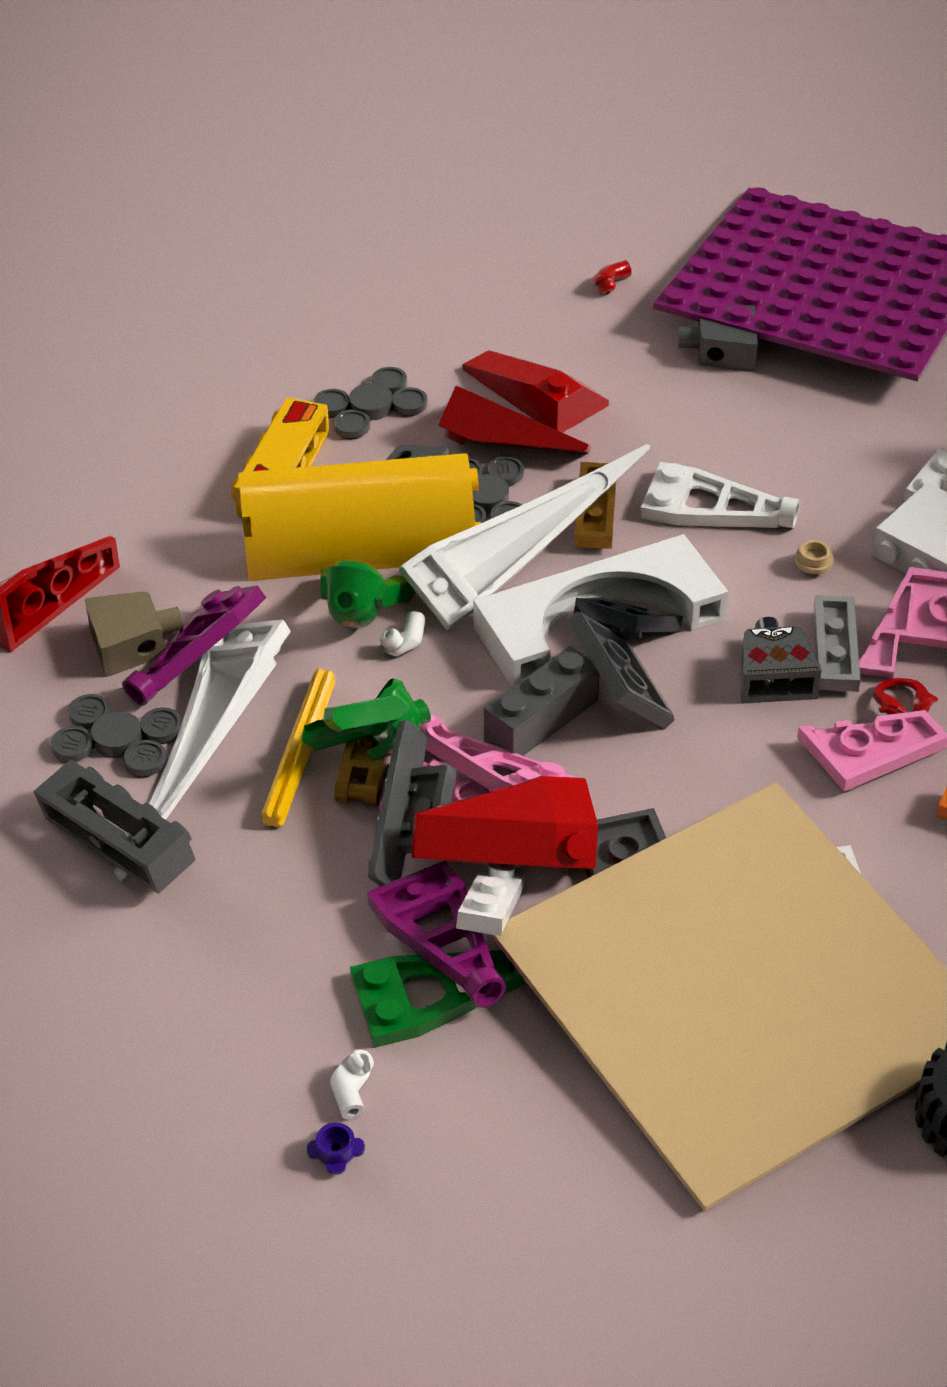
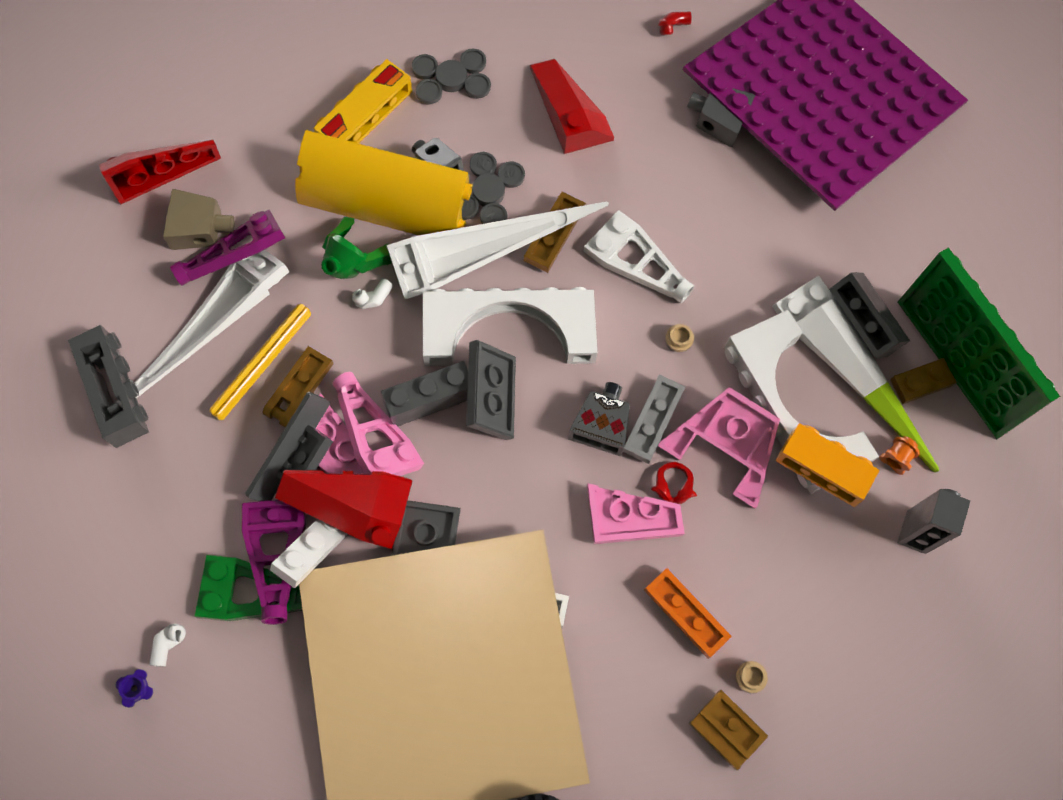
camera: 15 degrees right, 25 degrees up
(116, 734) = (152, 303): dark grey piece -> none
(367, 719) = (309, 374): green piece -> none
(487, 422) = (515, 128): red wedge -> none
(629, 618) = (522, 341): black wing -> none

